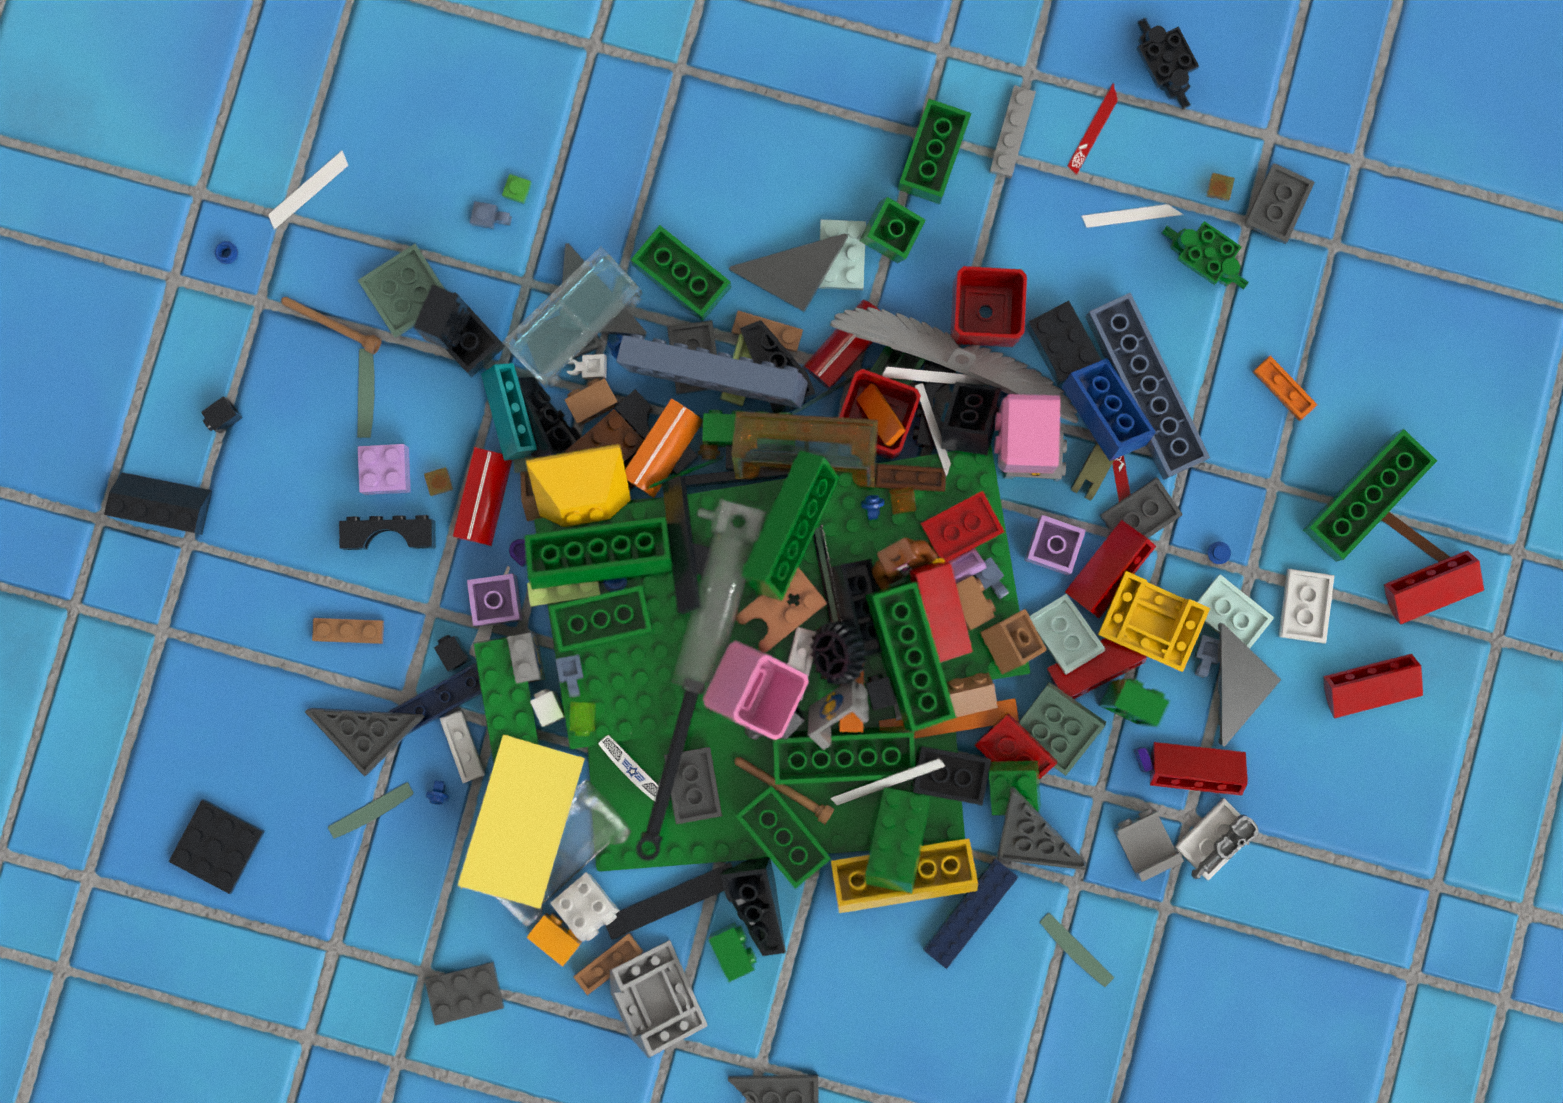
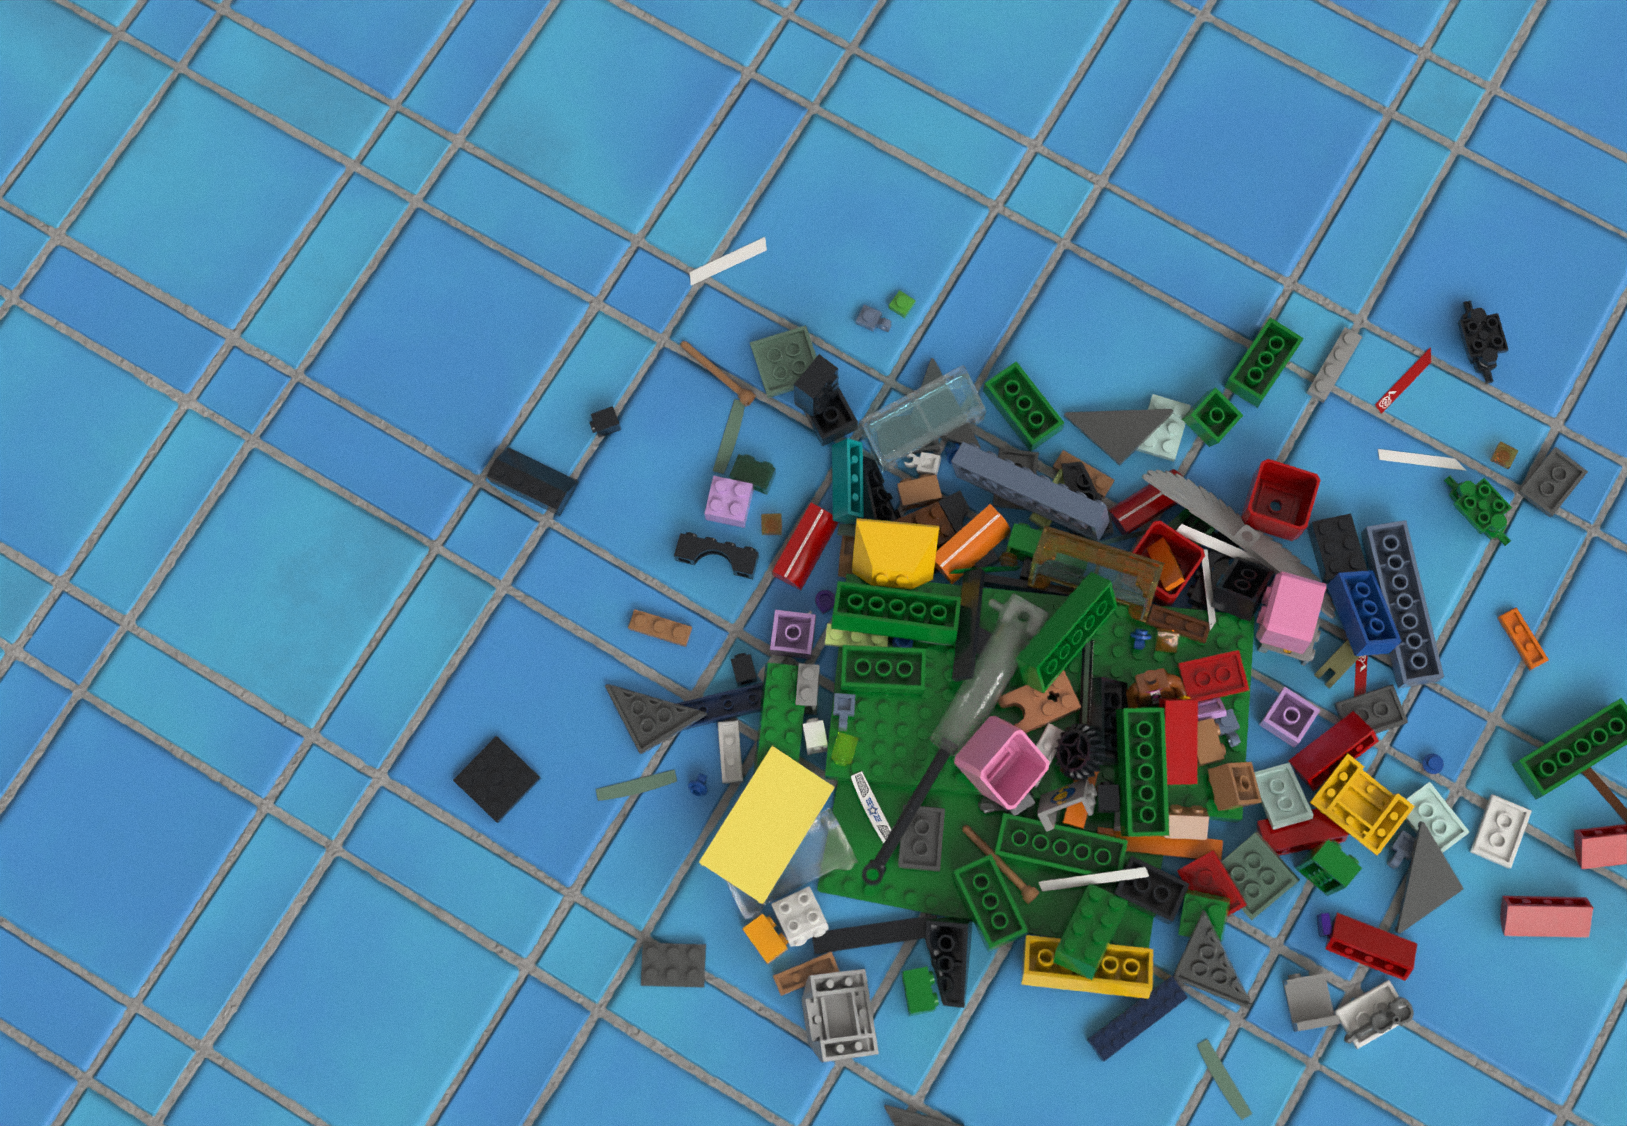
camera: 20 degrees right, 10 degrees down
(221, 248) = (646, 288): blue plate -> none
(402, 429) = (751, 471): none -> clear green brick

